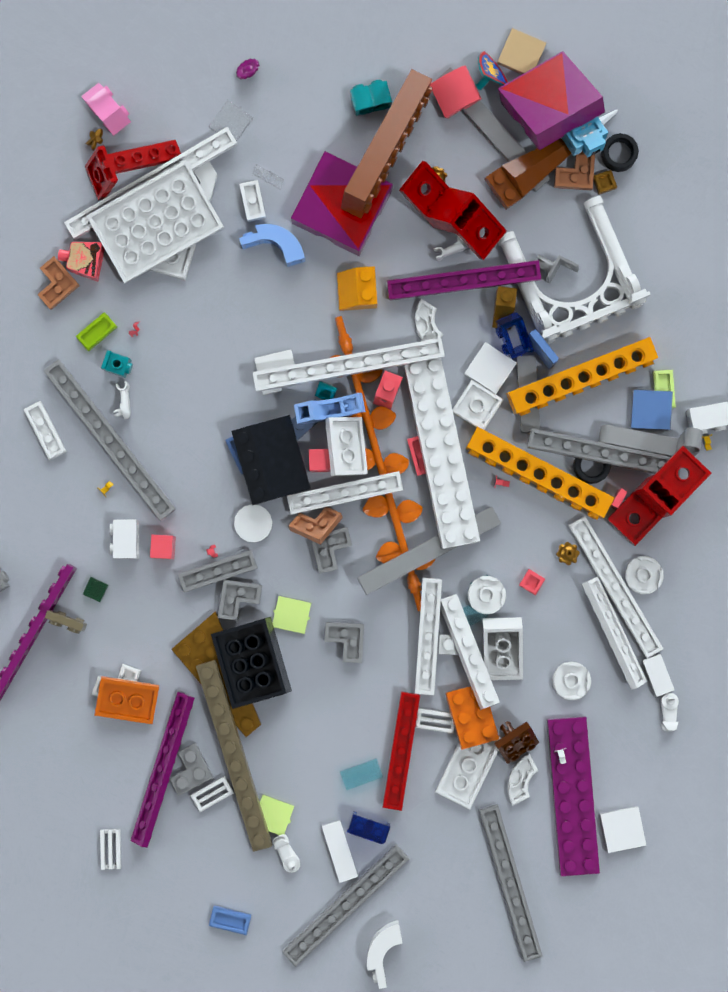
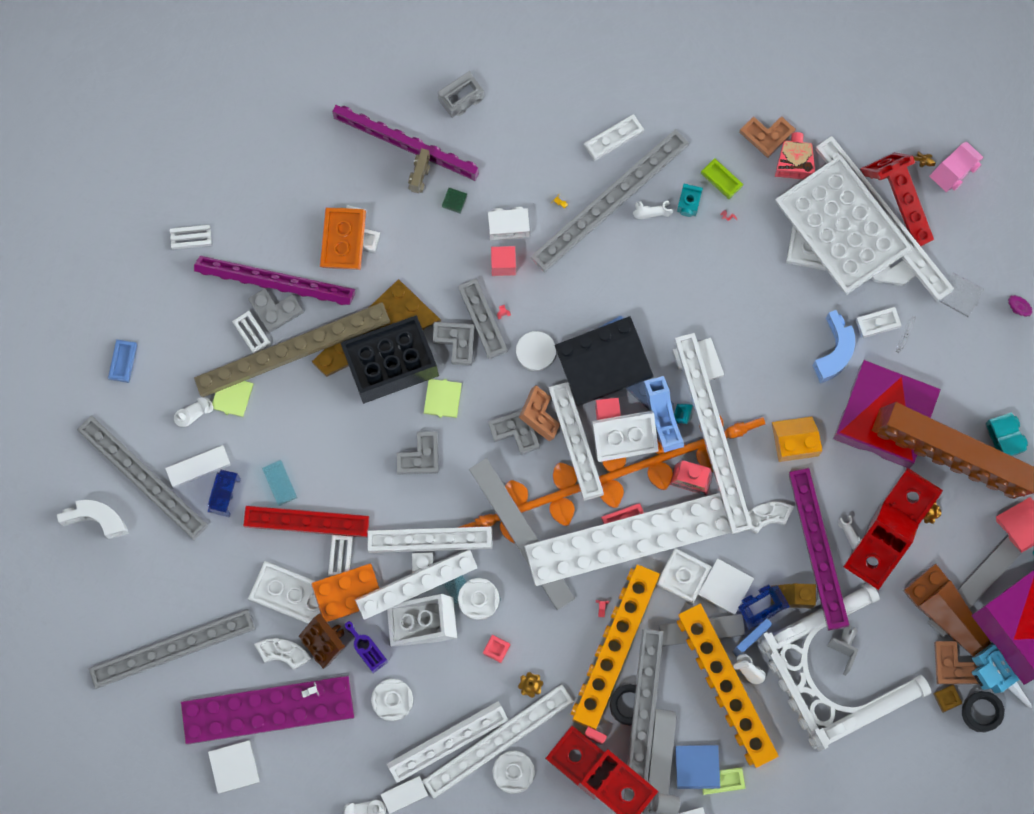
camera: 85 degrees right, 10 degrees down
(530, 703) = (365, 654): none -> dark purple piece
(570, 354) = (752, 673): none -> white piece

